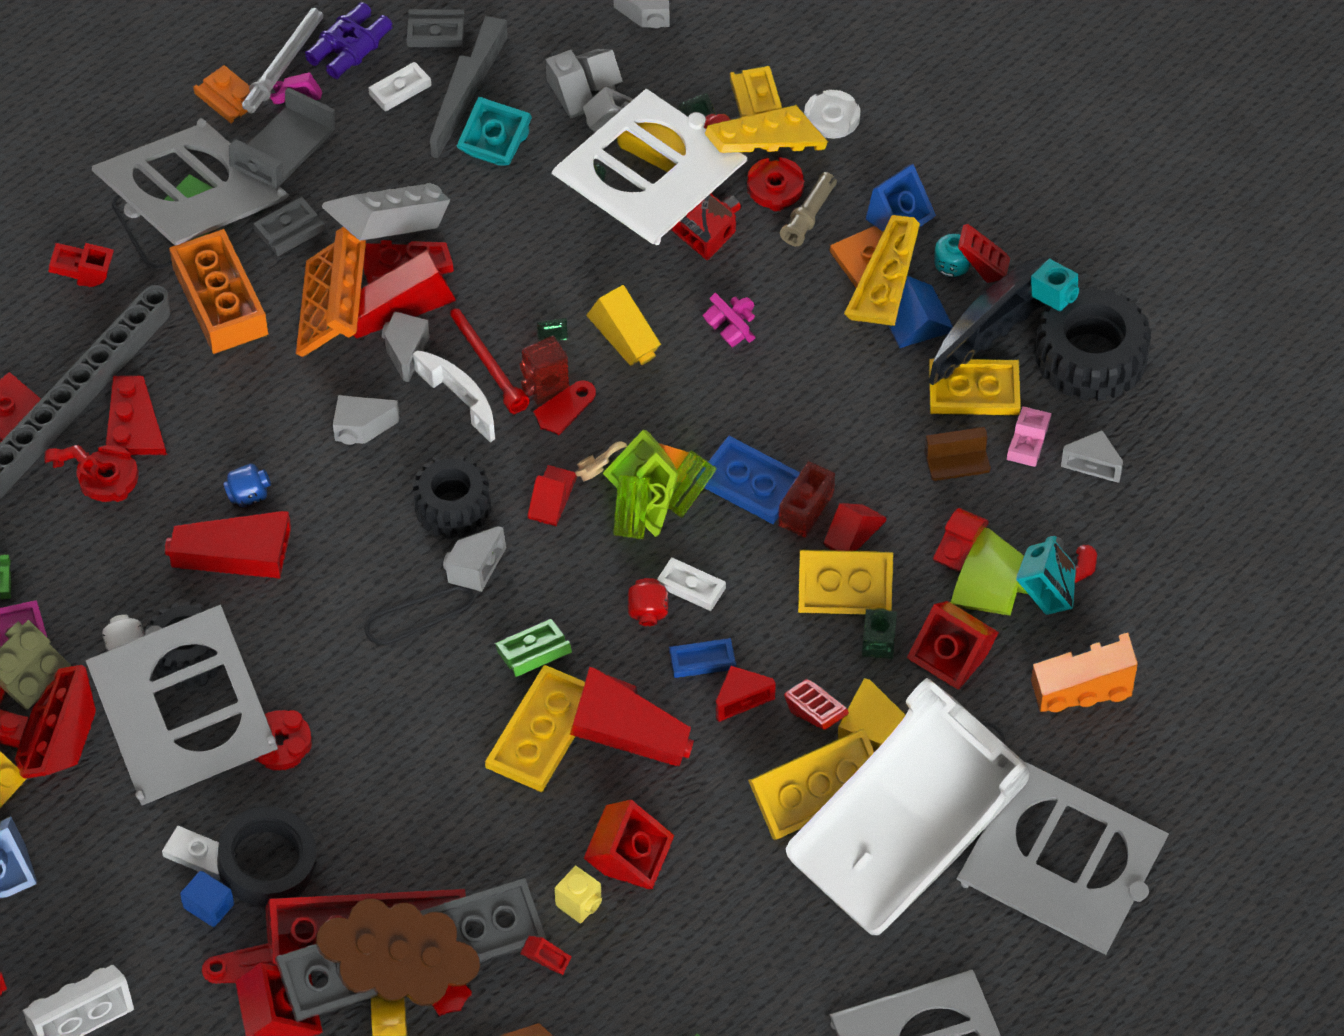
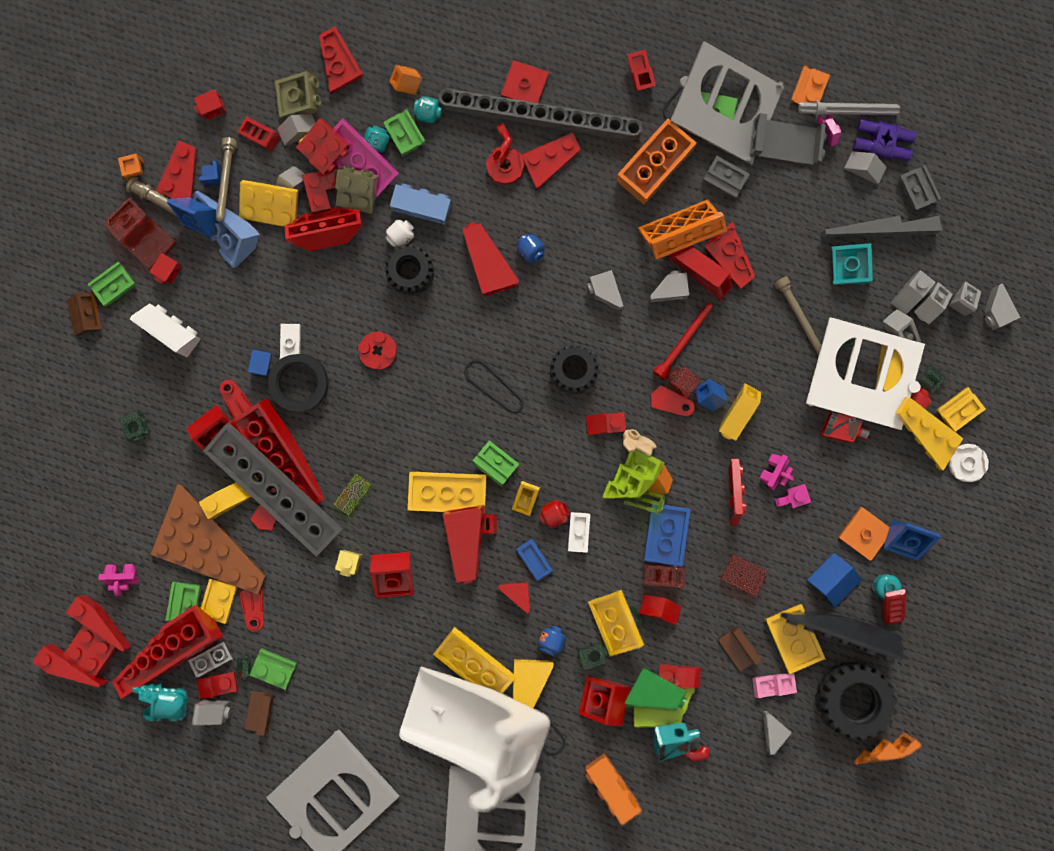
camera: 70 degrees right, 30 degrees up
(98, 596) = (421, 204): none -> medium blue brick
(146, 744) = (336, 285): light grey door -> none
(367, 70) = (866, 166): none -> light grey slope
(390, 211) = (755, 232): light grey slope -> none
(397, 952) = (262, 485): reddish brown plate -> none
(400, 86) = (863, 189): white plate -> none
(438, 370) = (659, 315): white slope -> none
(475, 558) = (538, 402): light grey slope -> none
(477, 857) = (352, 494): none -> clear neon green tile
(478, 219) = (784, 286): none -> dark tan piece
(546, 954) = (306, 560): red piece -> none
(554, 327) = (722, 368): clear green slope -> none
(584, 353) = (711, 395): none -> blue panel
(603, 627) = (525, 498): none -> yellow slope
(614, 35) = (966, 299): none -> light grey slope
(627, 506) = (611, 473): clear neon green tile -> none
(745, 373) = (738, 489): none -> wing
(775, 196) = (885, 457): red plate -> none
(776, 315) = (795, 496): none -> dark pink plate
(804, 217) = (876, 481): dark tan pin -> none
(811, 701) = (530, 631): red slope -> none
(833, 675) = (552, 640): none -> blue head
(855, 411) = (744, 575): none -> clear red plate
(885, 276) = (848, 553): yellow wing -> none
(969, 565) = (655, 693): none -> green slope
(1055, 285) = (886, 669): teal brick -> none
(1175, 331) = (885, 750): none -> orange slope

